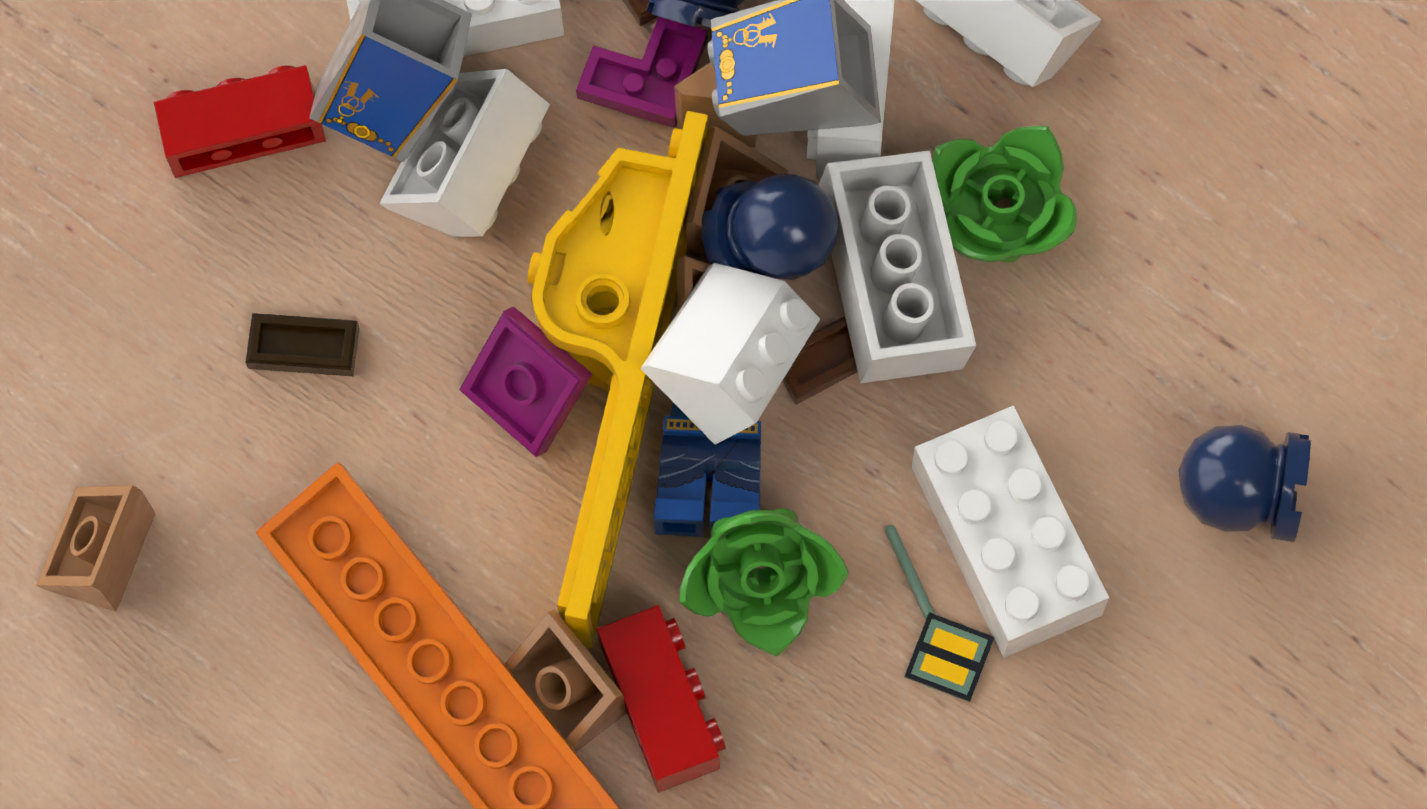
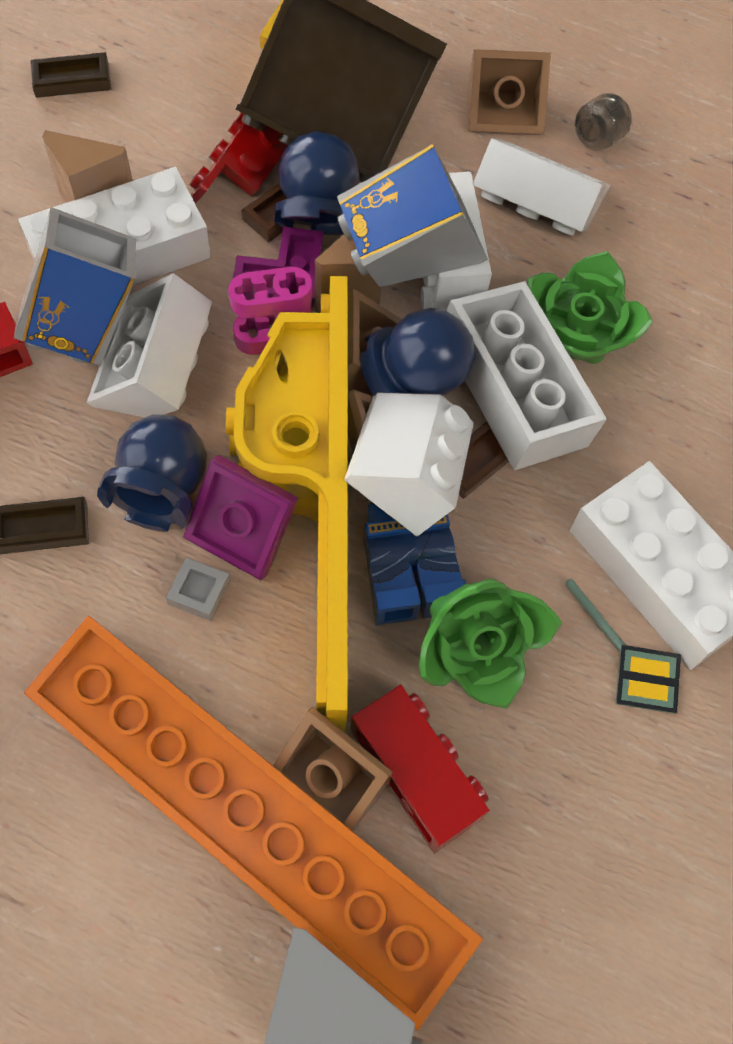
camera: 20 degrees left, 5 degrees down
(444, 304) = (155, 471): none -> dark blue tile
(464, 453) = (198, 589): none -> light grey plate
(639, 125) = (290, 294): none -> dark pink connector

